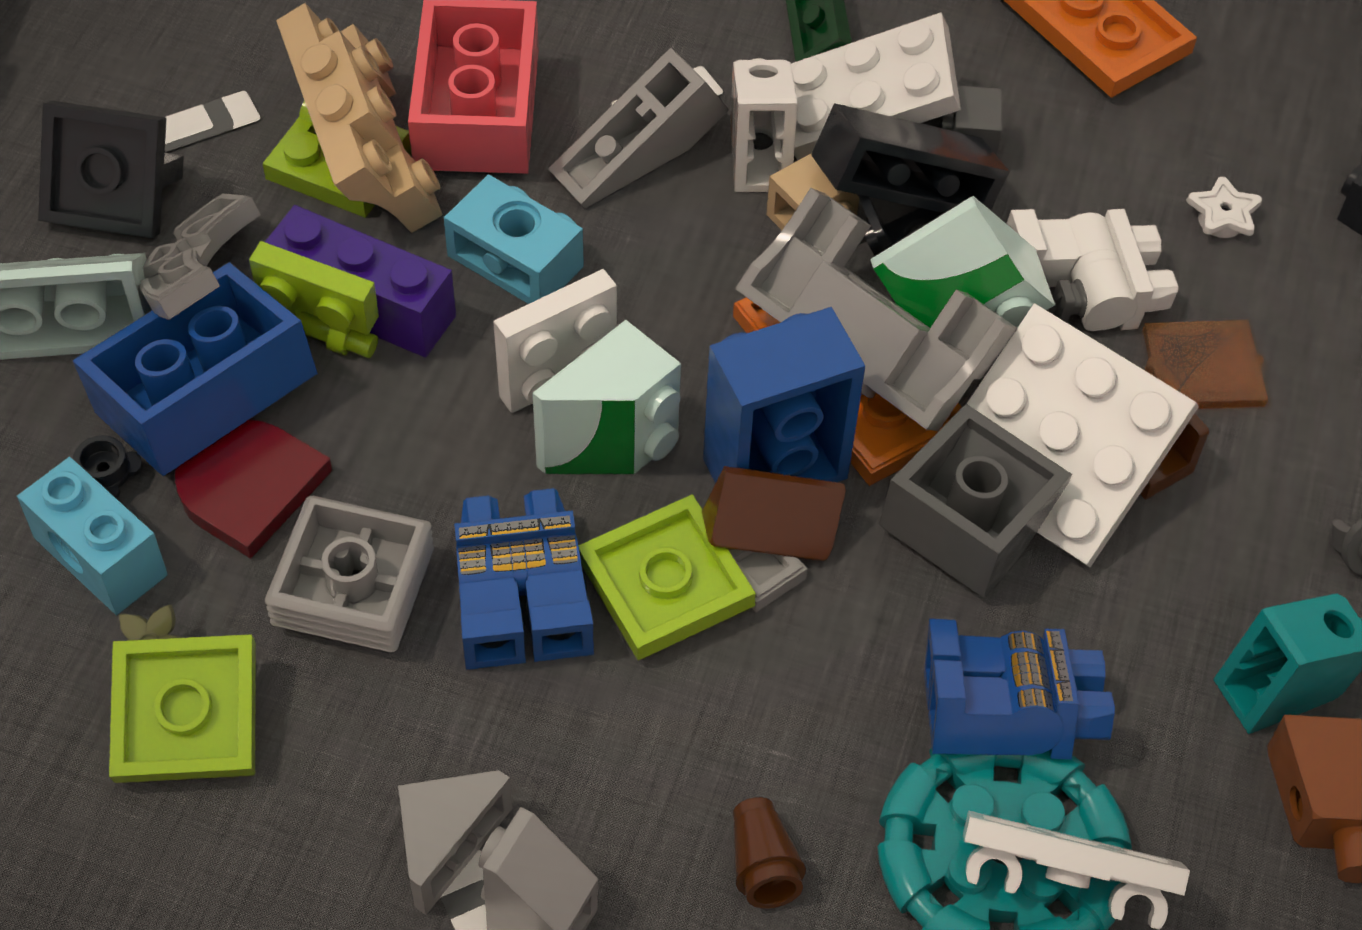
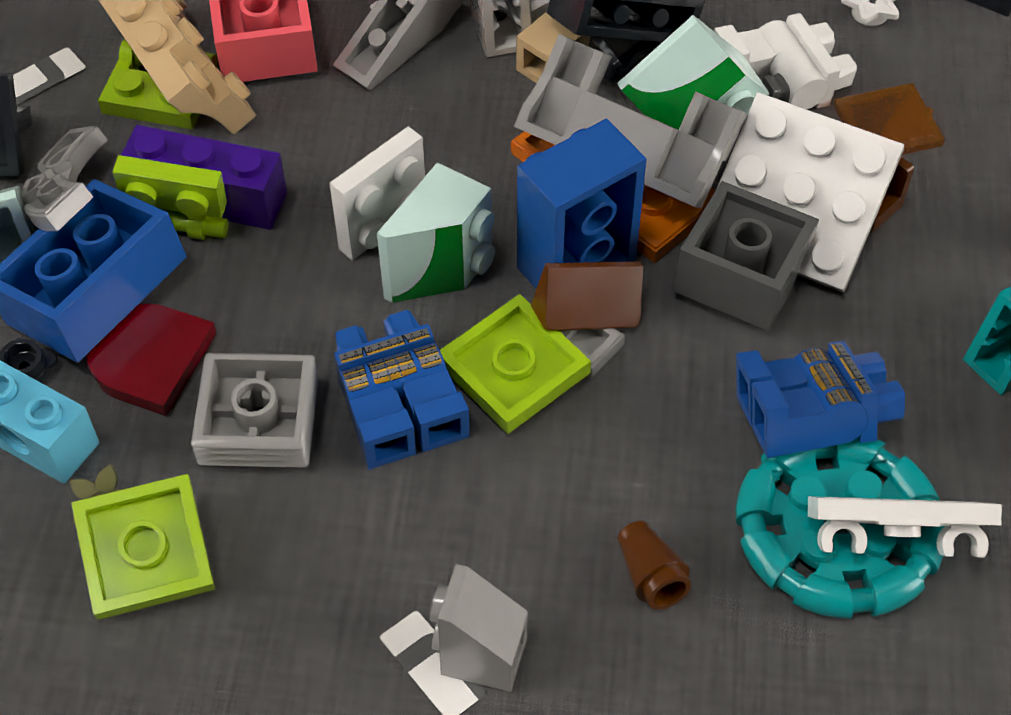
camera: 10 degrees left, 0 degrees up
(446, 827) = (387, 596): light grey slope -> none
(514, 240) = (321, 123): medium azure brick -> none

